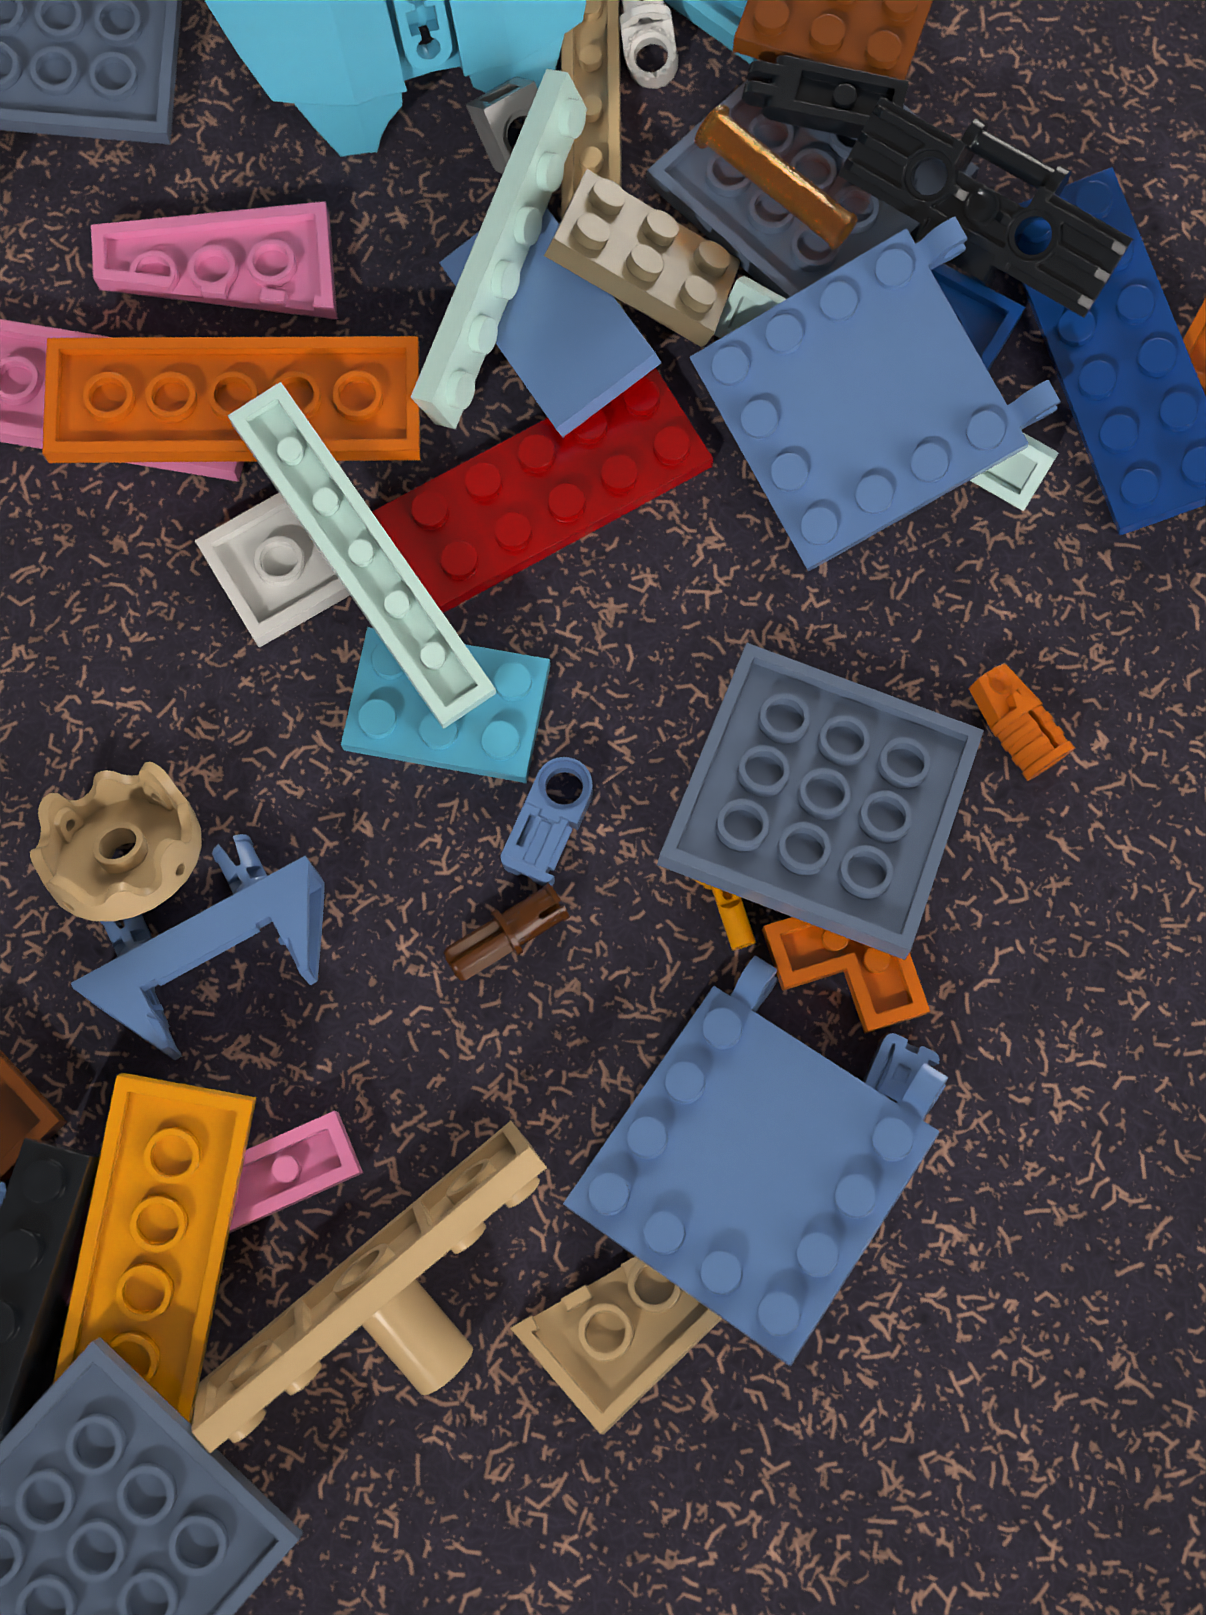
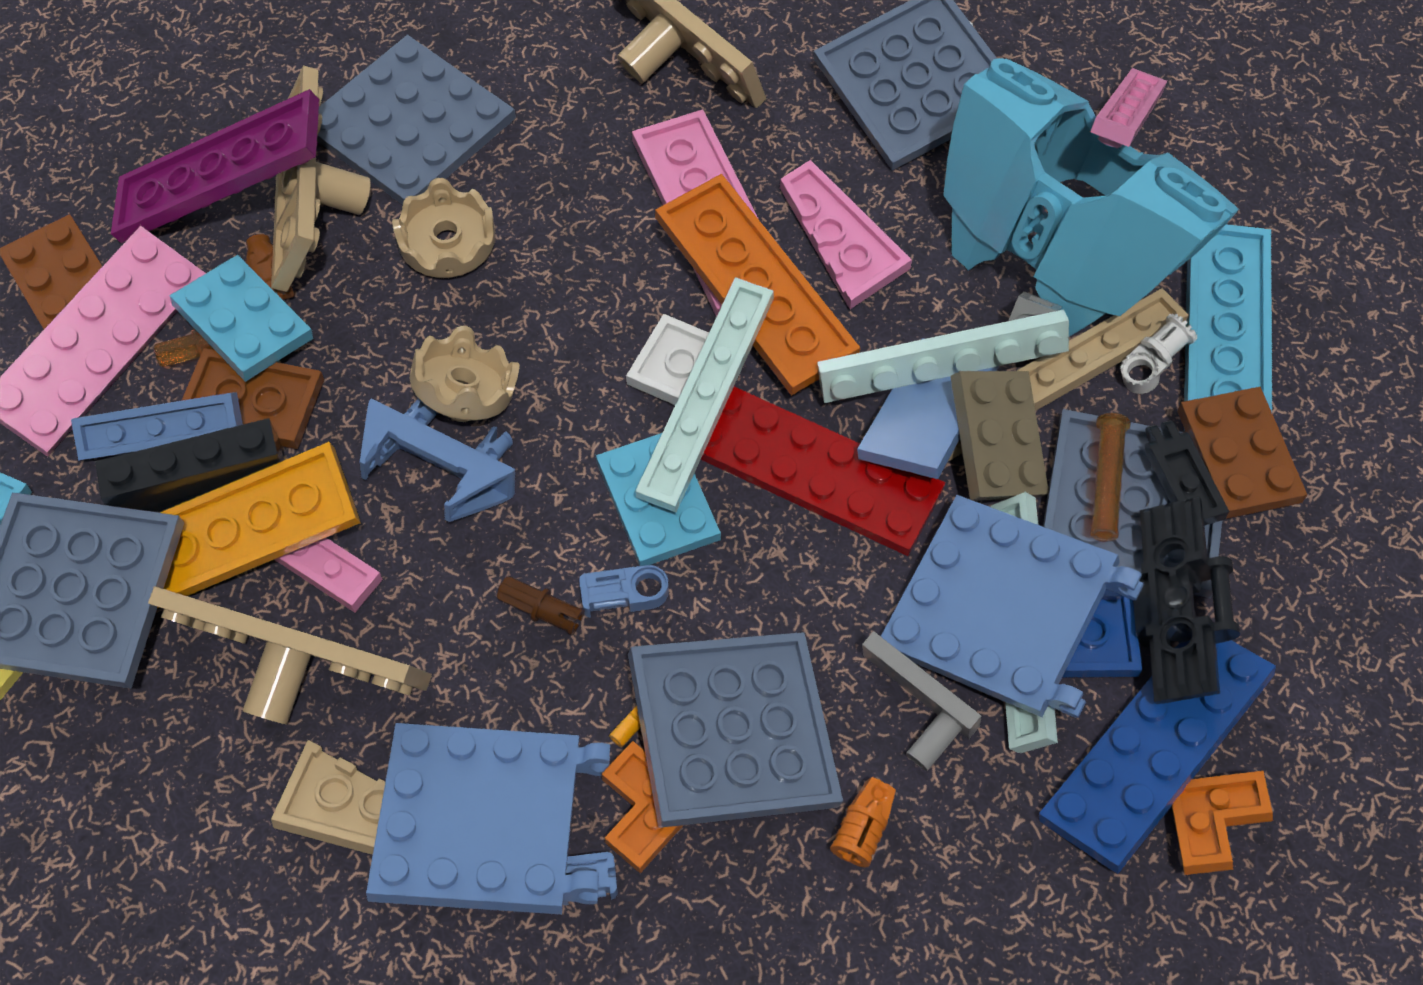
camera: 55 degrees right, 15 degrees down
(950, 542) = (951, 711): none -> light grey piece

